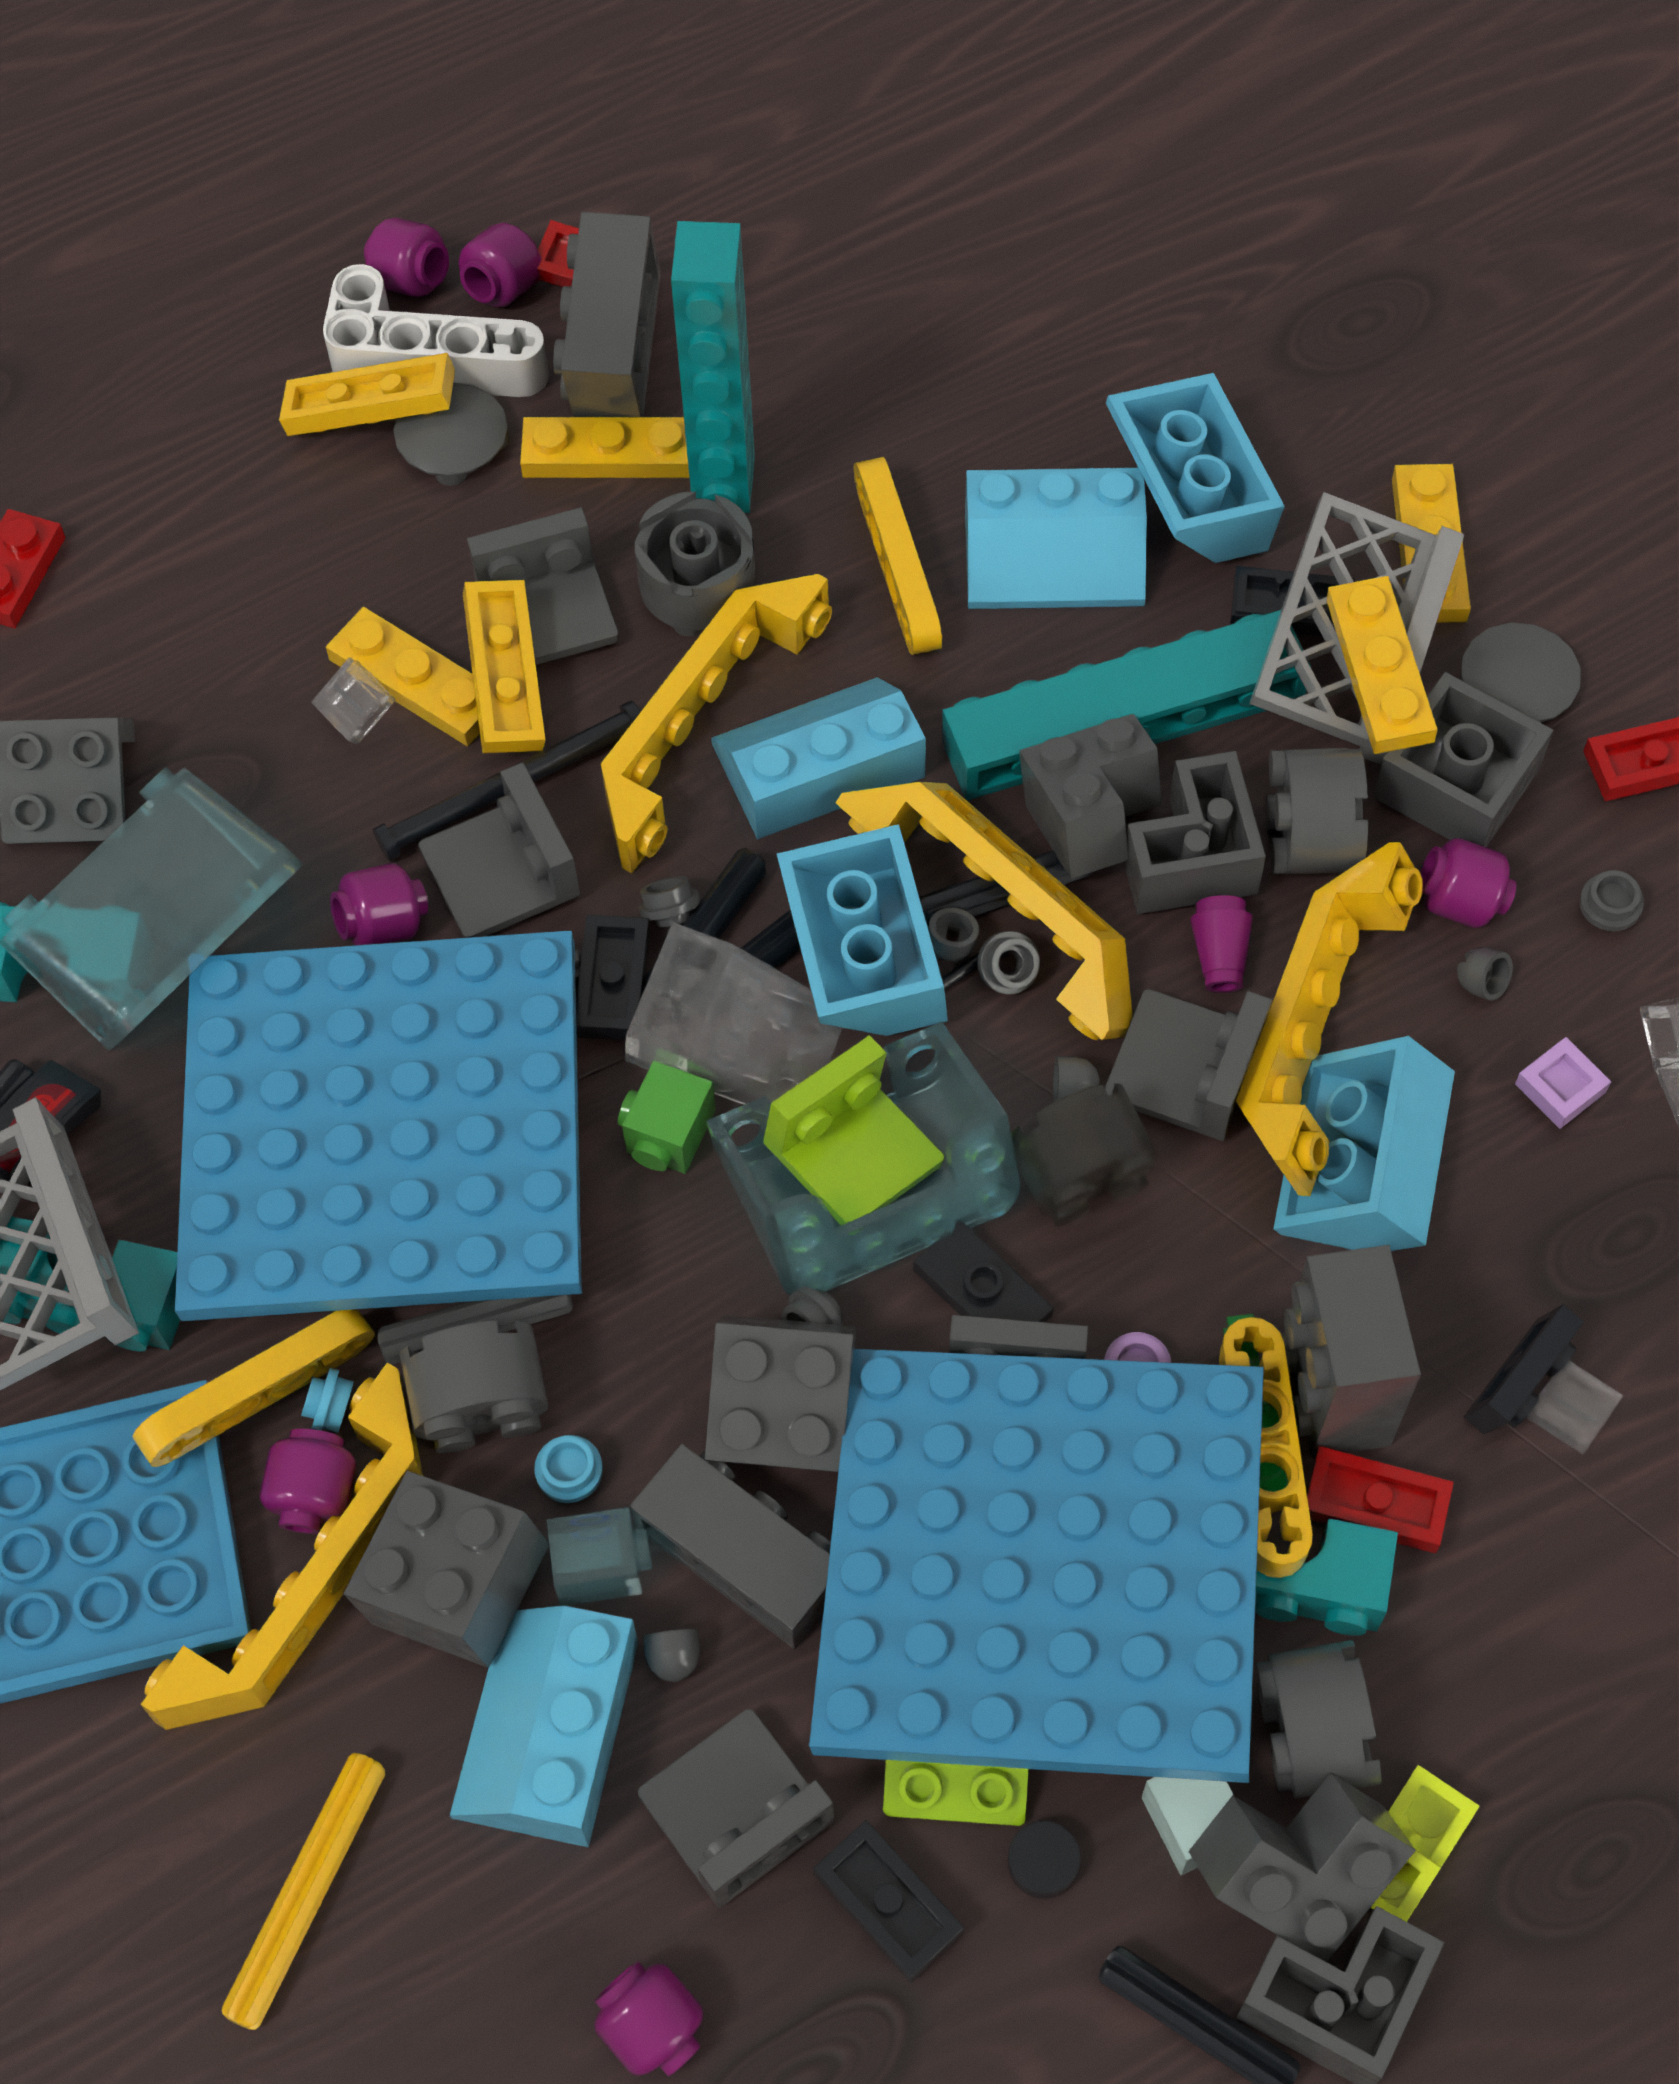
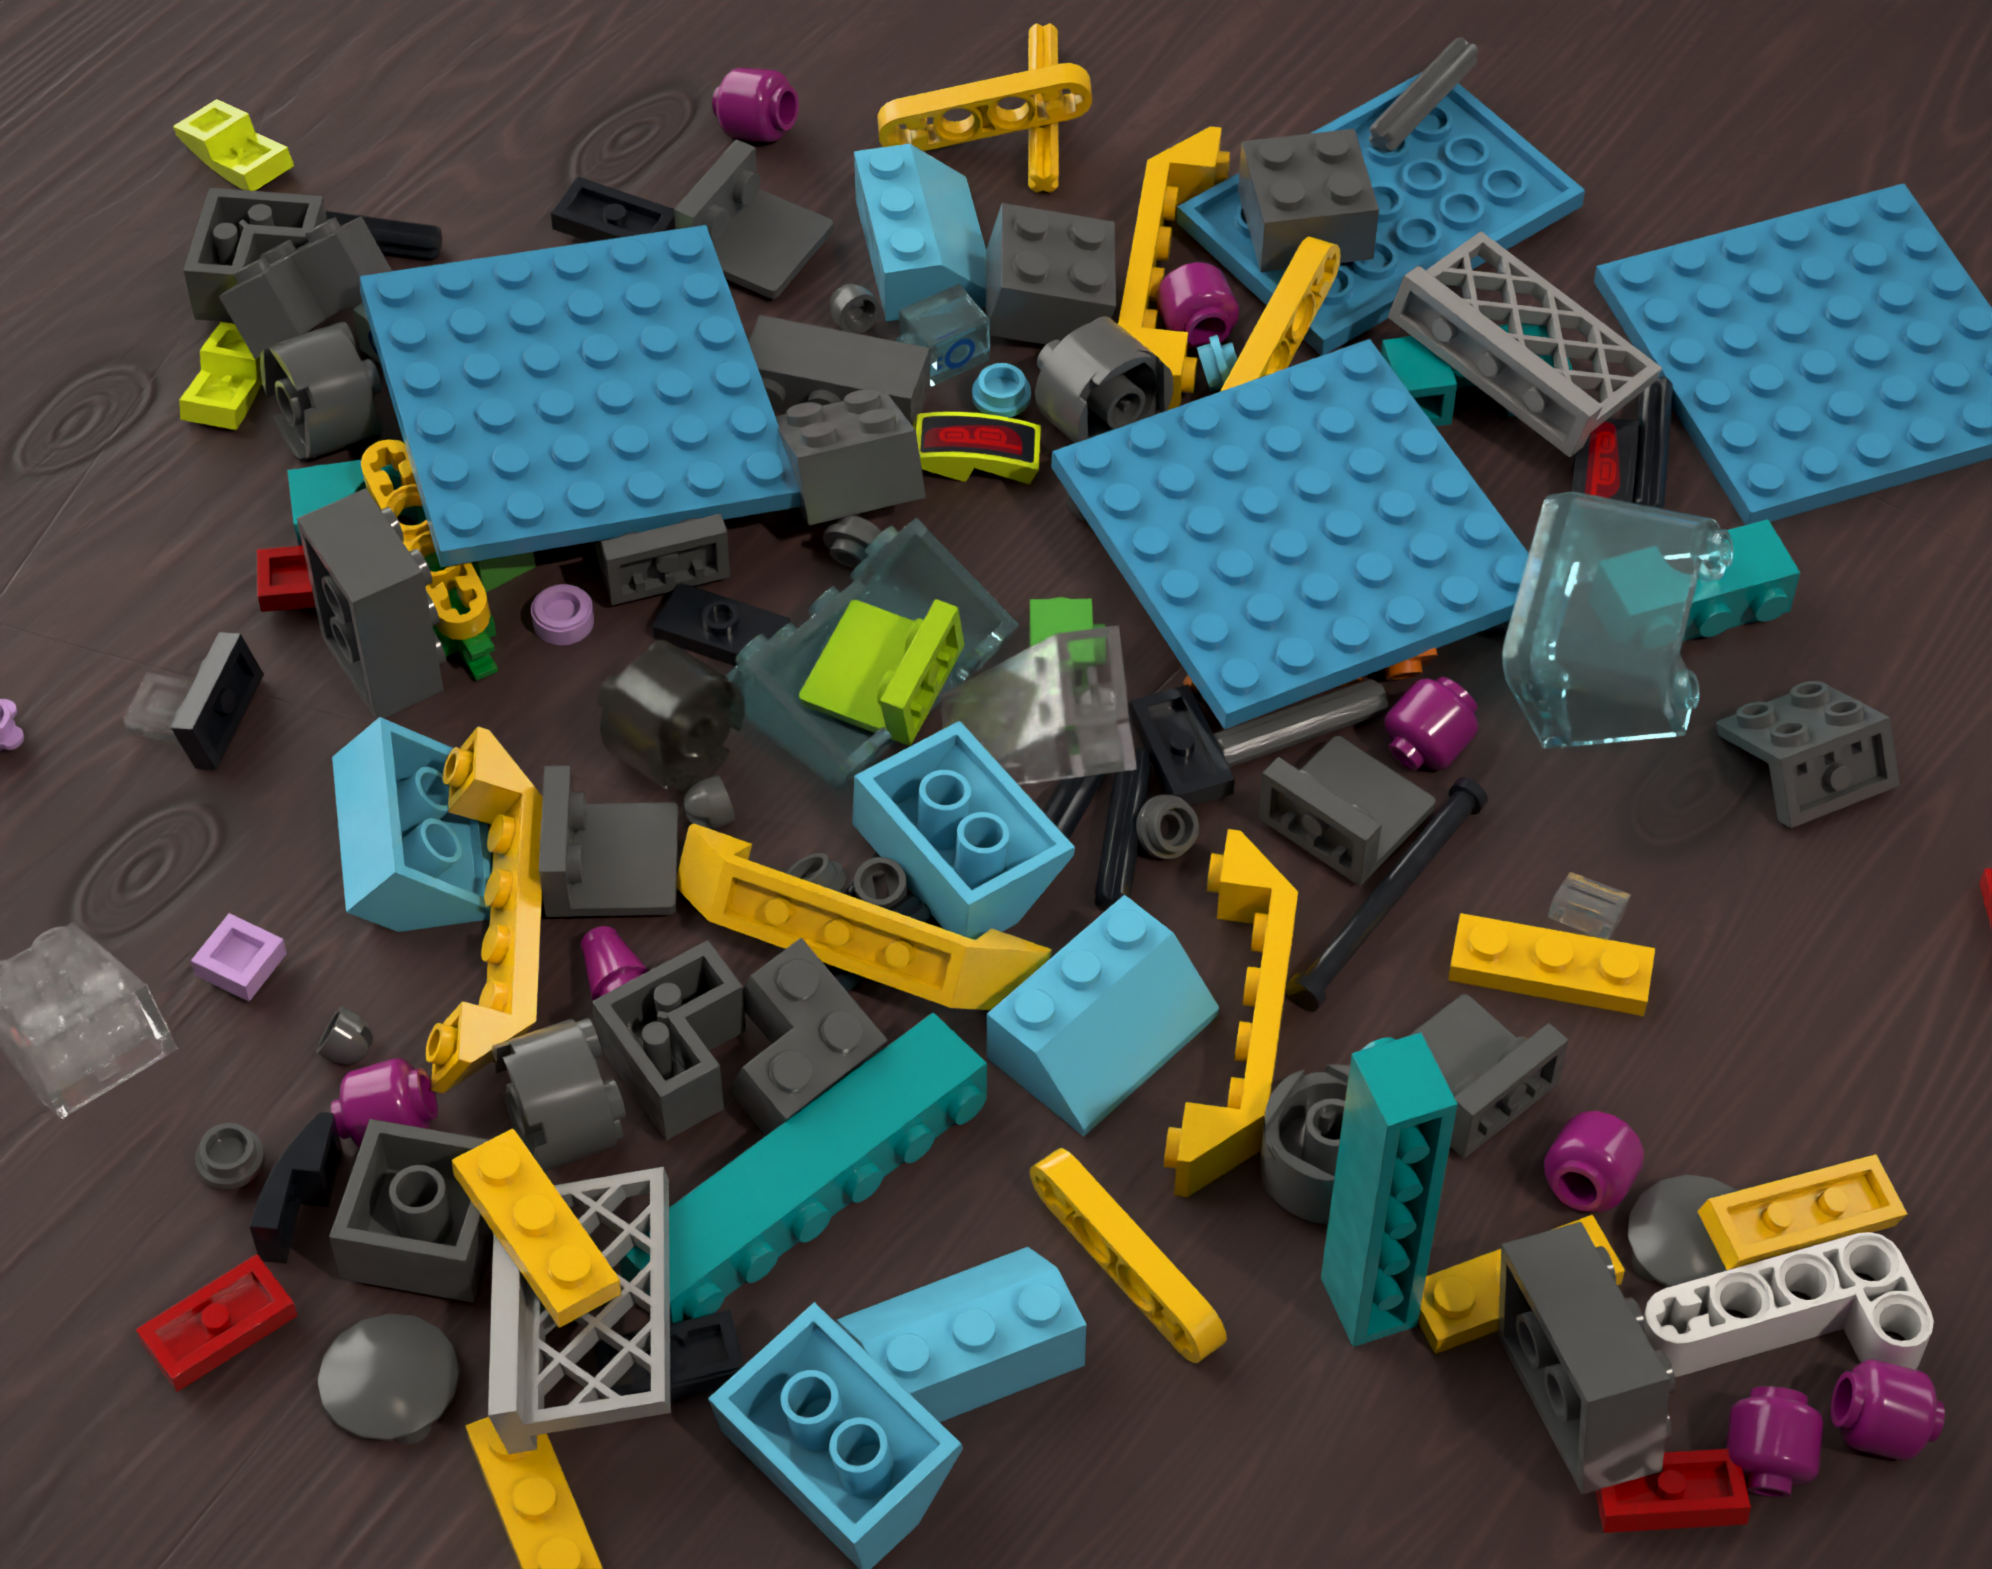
camera: 155 degrees right, 10 degrees down
(117, 1535) = (1306, 189): none -> dark grey brick
(387, 1870) = (982, 101): none -> yellow beam
(494, 491) = (1593, 1161): none -> magenta head
(503, 666) = (1458, 964): yellow plate -> none
(631, 1401) = (962, 441): none -> slope
(1558, 844) = (300, 1176): none -> black slope

